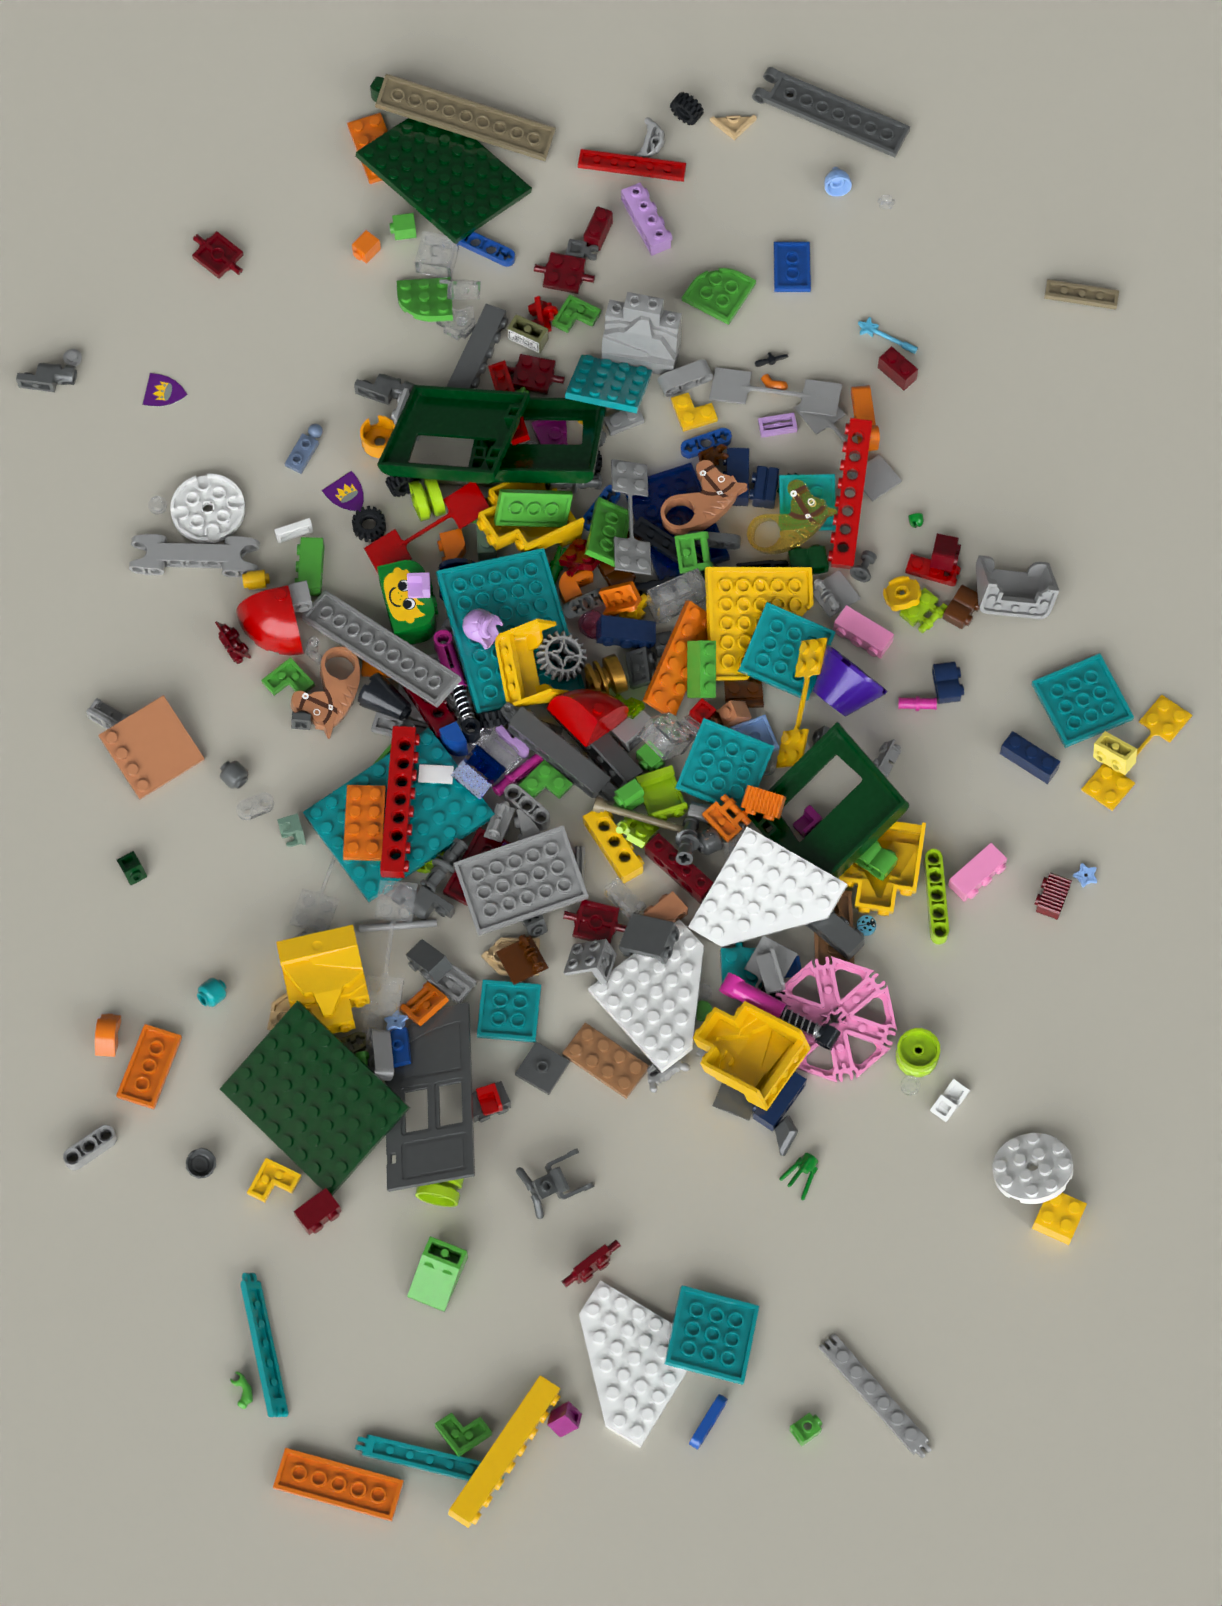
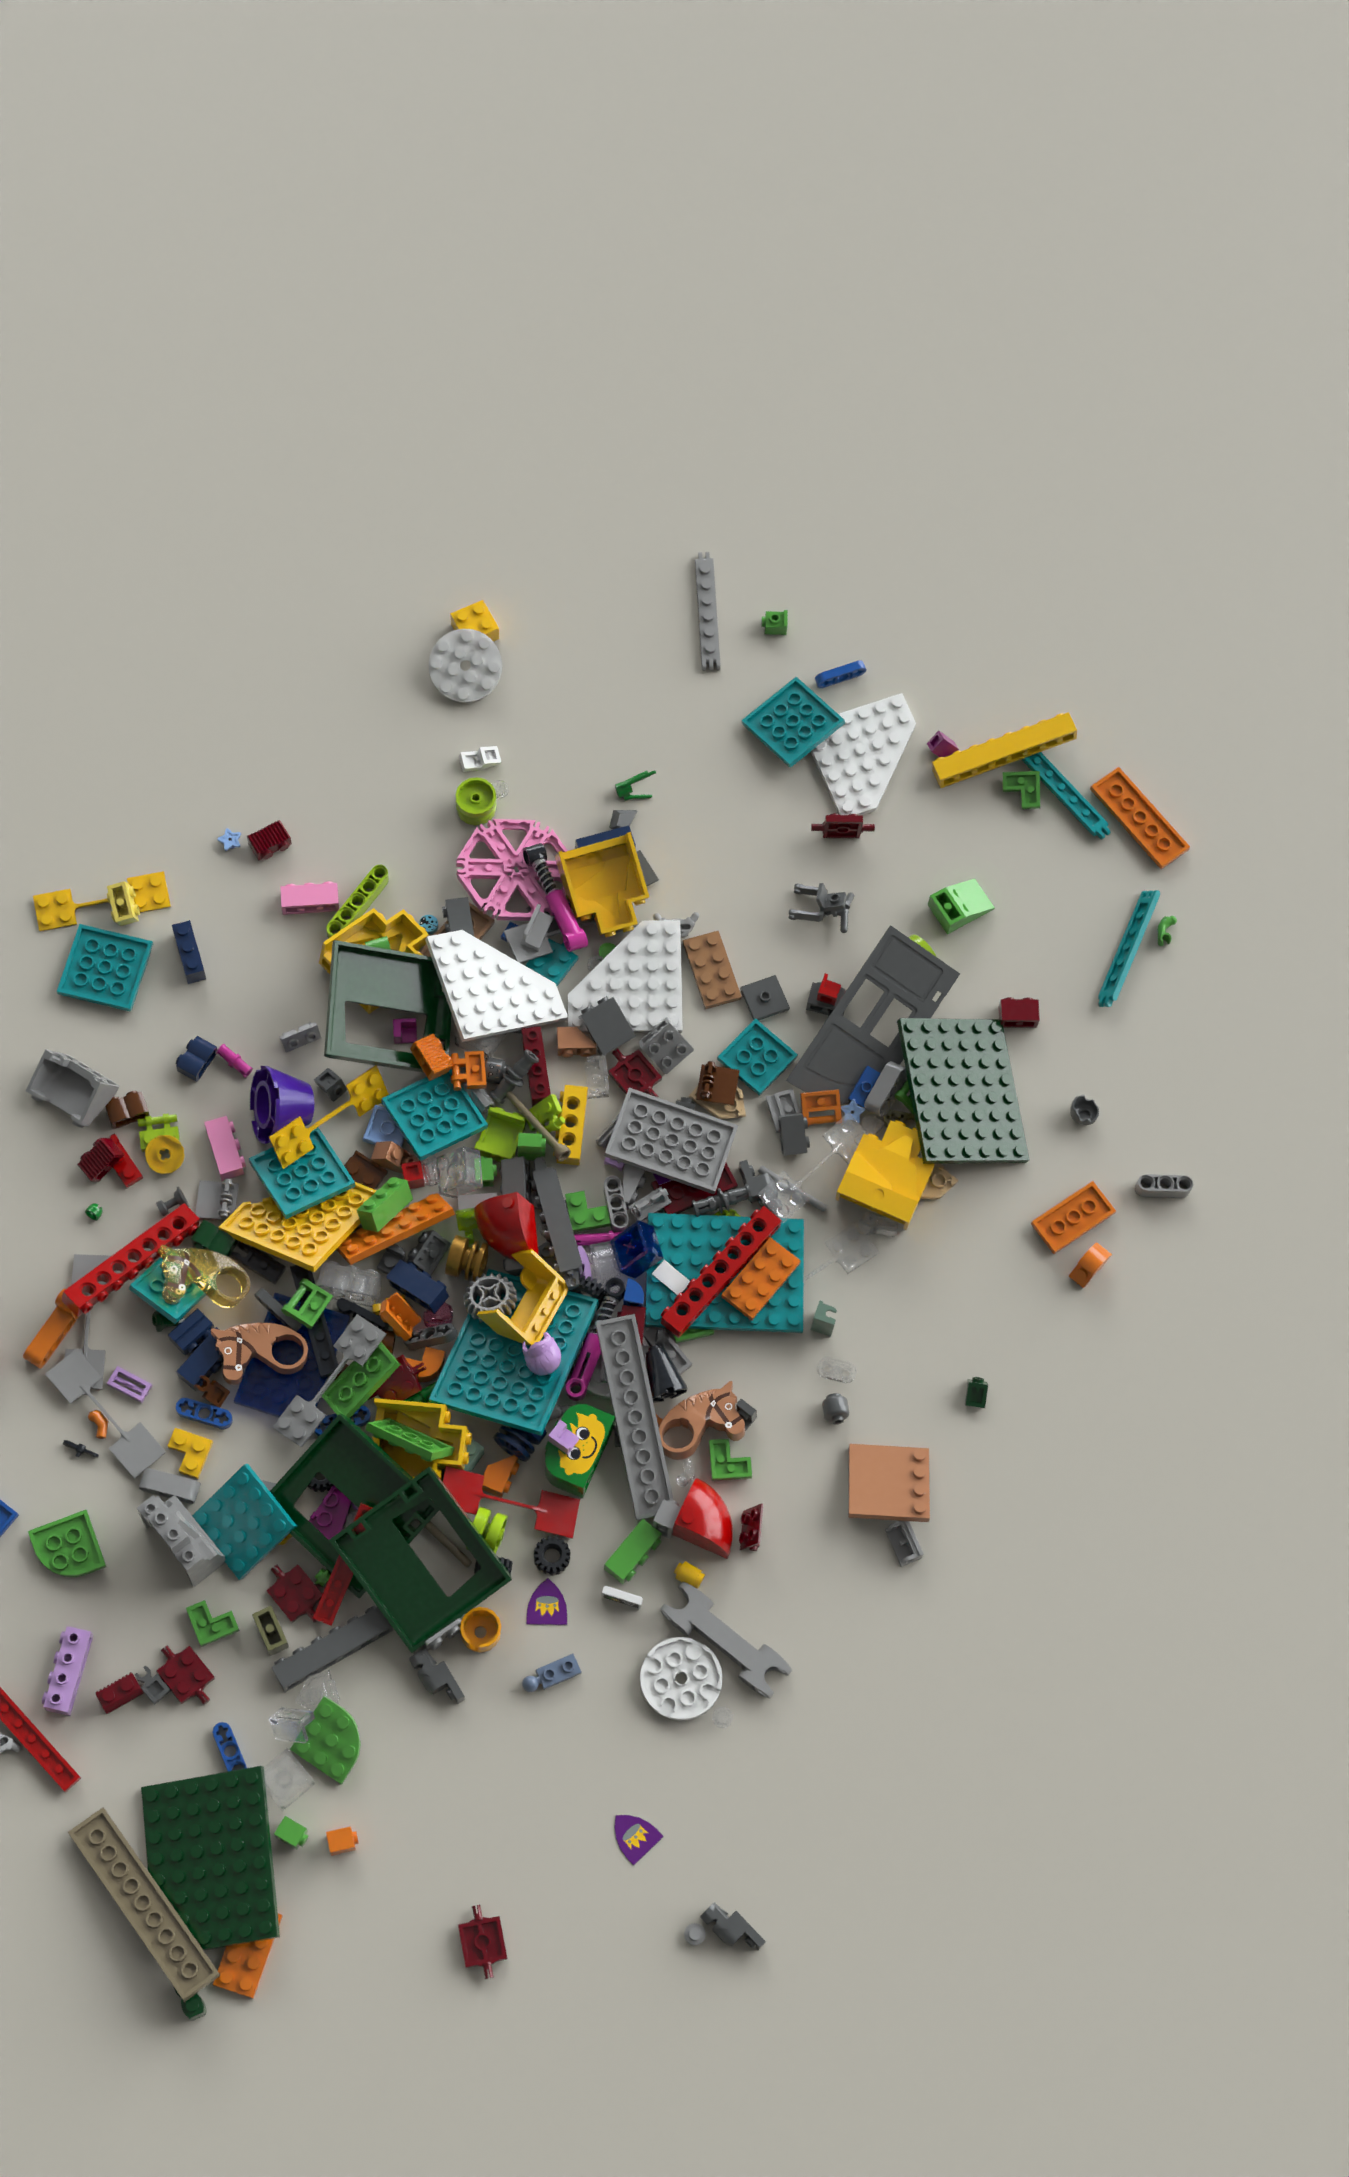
camera: 150 degrees left, 0 degrees up
(211, 992) = (982, 1238): teal head -> none
(272, 1175) = (1034, 1065): yellow plate -> none
(544, 311) = (237, 1642): red hips -> none

